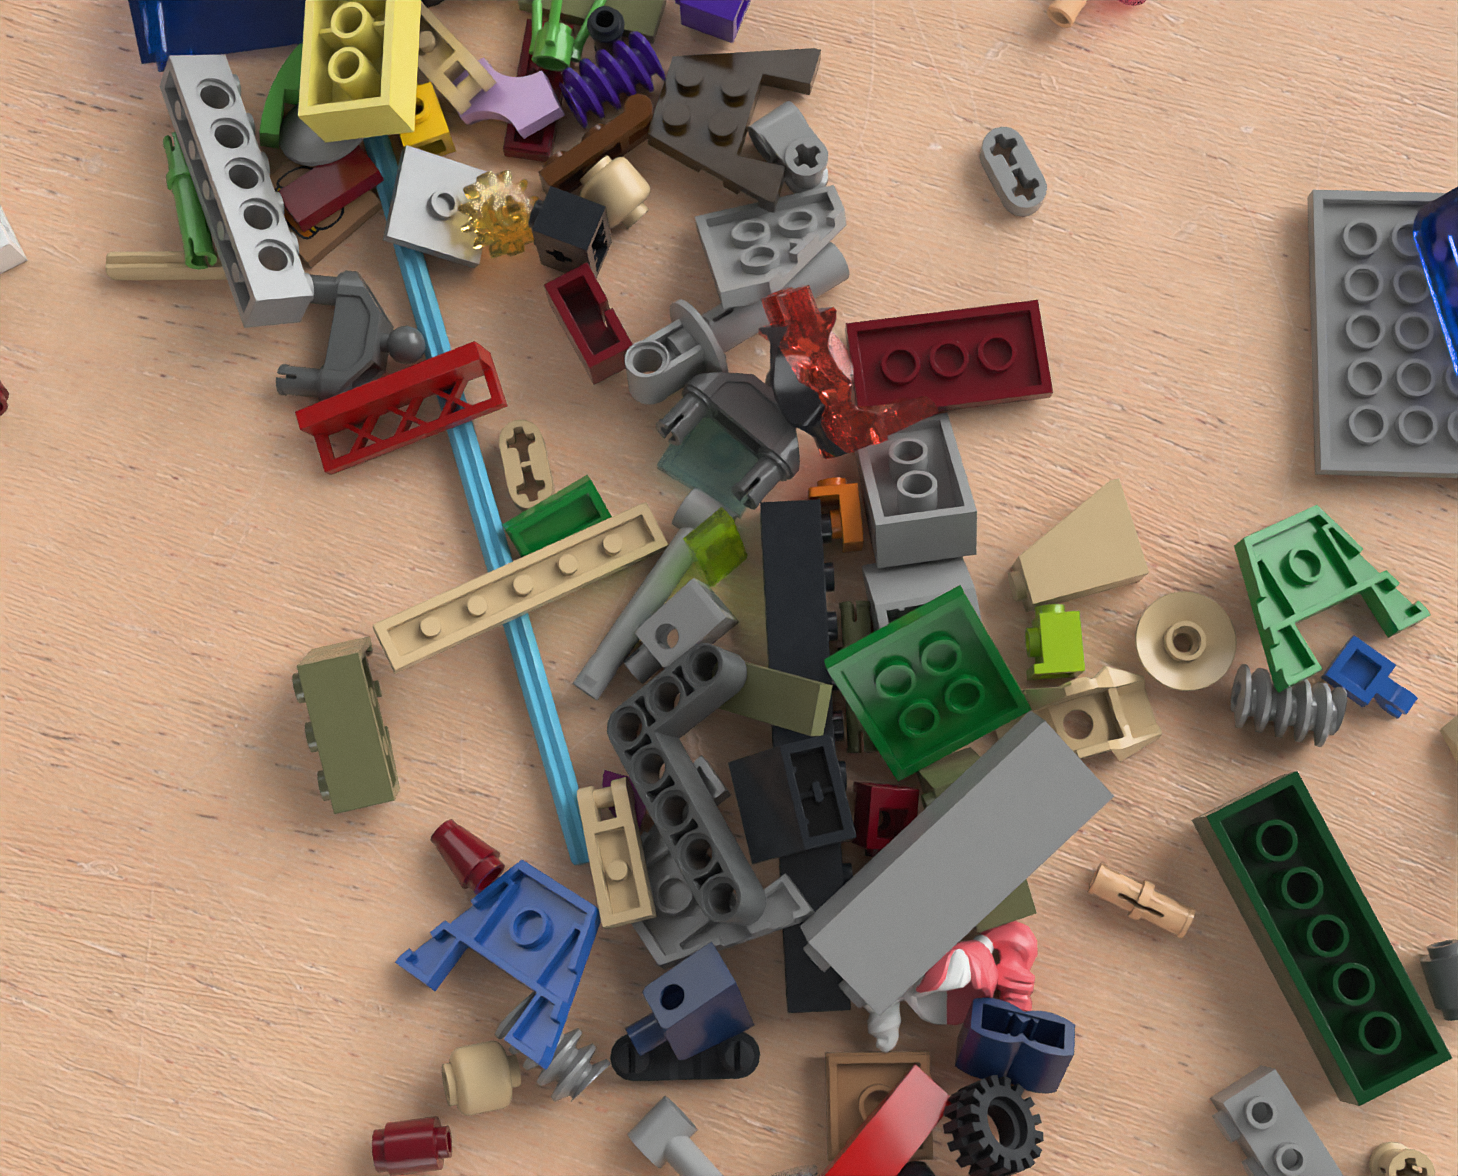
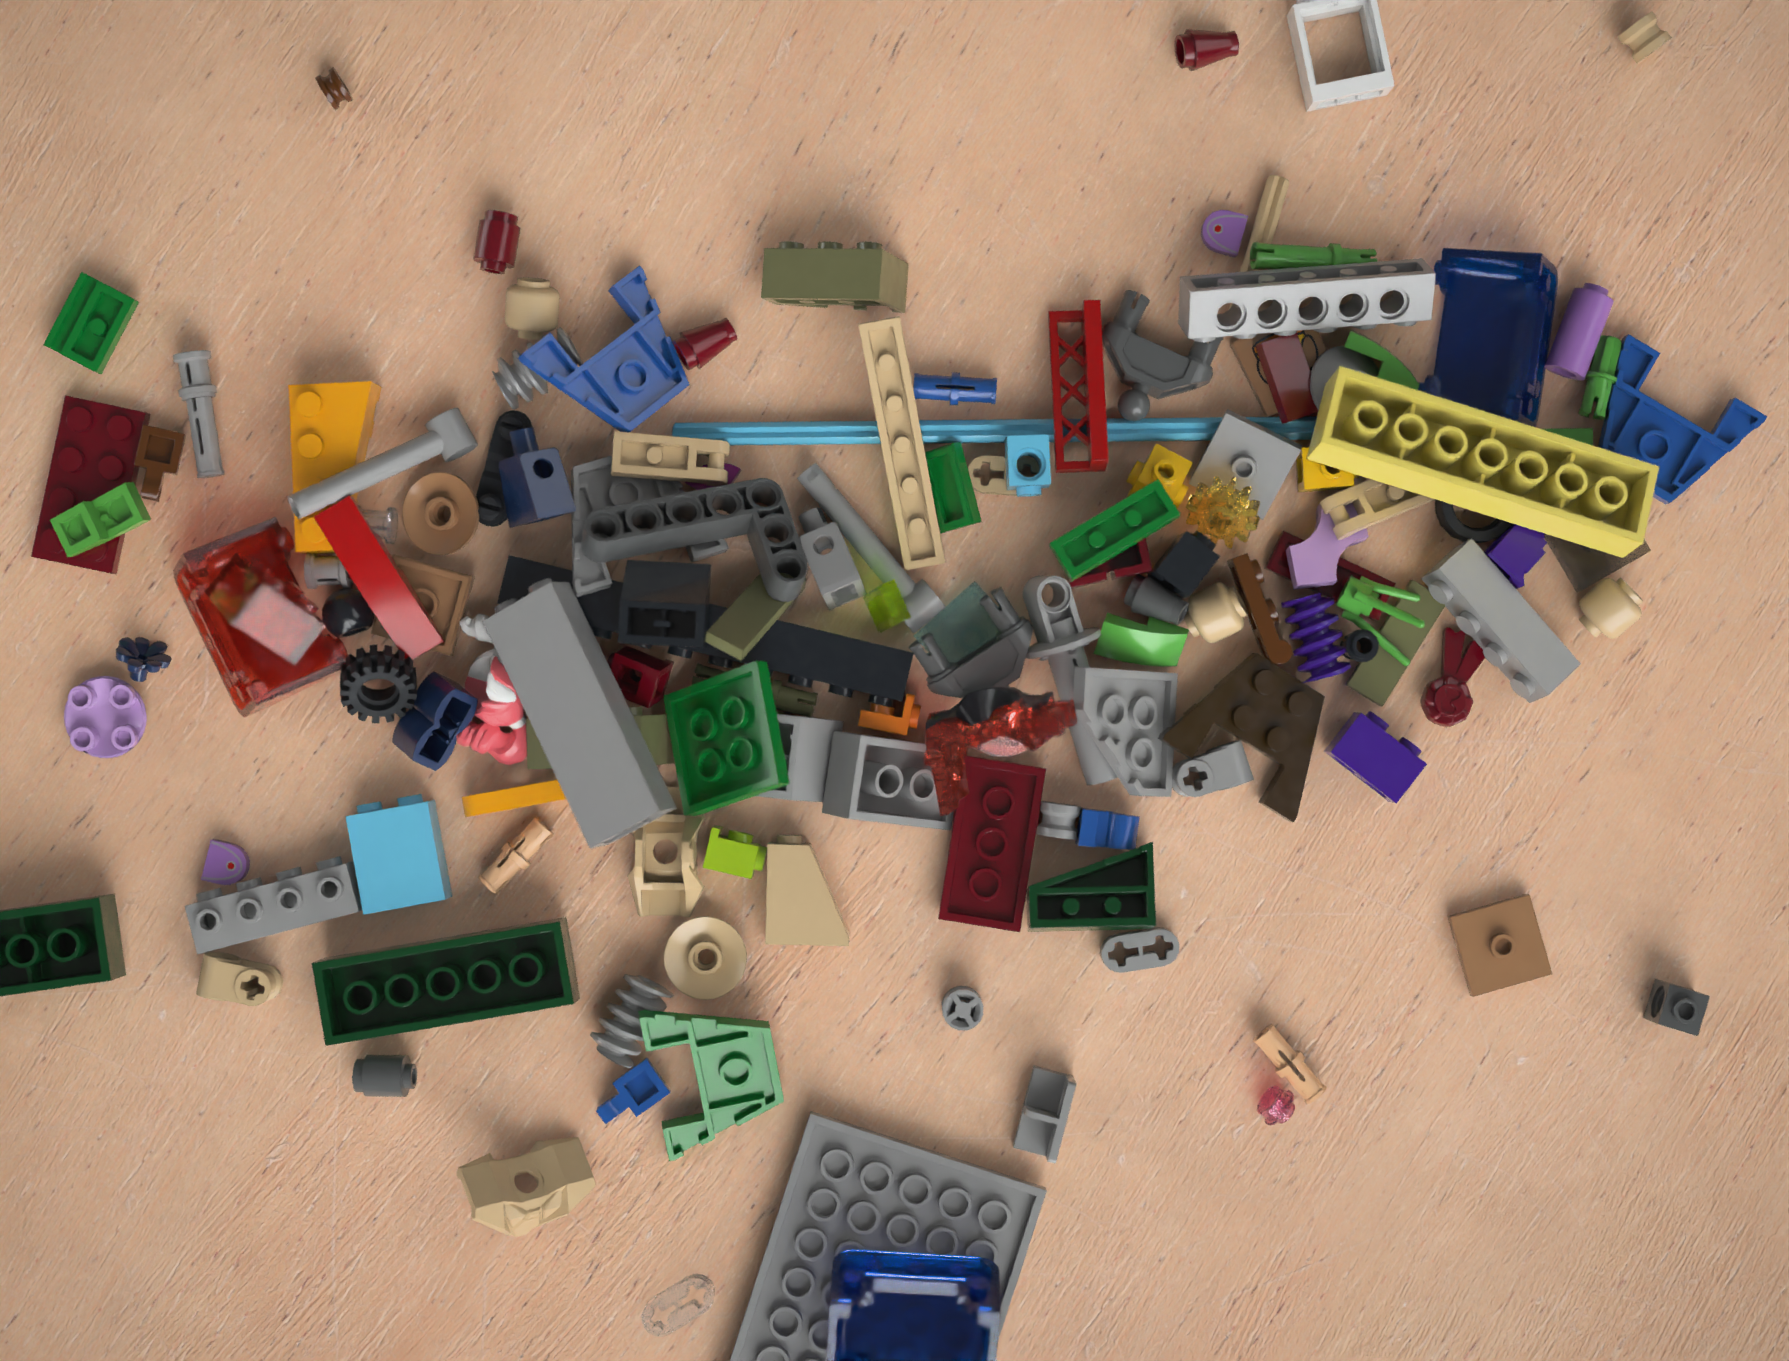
camera: 105 degrees right, 10 degrees up
(185, 307) = (1224, 232): none -> medium lavender tile
(436, 519) = (983, 388): none -> blue pin
(485, 292) = (1166, 467): none -> yellow brick
(489, 424) = (1027, 445): none -> medium azure brick
(554, 310) = (1114, 530): none -> green plate
(621, 258) = (1155, 600): none -> dark grey cone
(673, 260) = (1136, 643): none -> bright green slope
(765, 1138) = (424, 513): none -> medium nougat dish
(892, 243) = (1107, 829): none -> blue leg
(899, 294) = (1058, 820): none -> light grey wheel
(969, 224) = (1097, 897): none -> dark green wedge
(1073, 921) = (512, 798): none -> light orange beam
(1149, 330) = (967, 1013): none -> light grey wheel
(1188, 1043) = (398, 854): none -> medium azure brick
(1227, 215) = (1045, 1113): none -> light grey panel

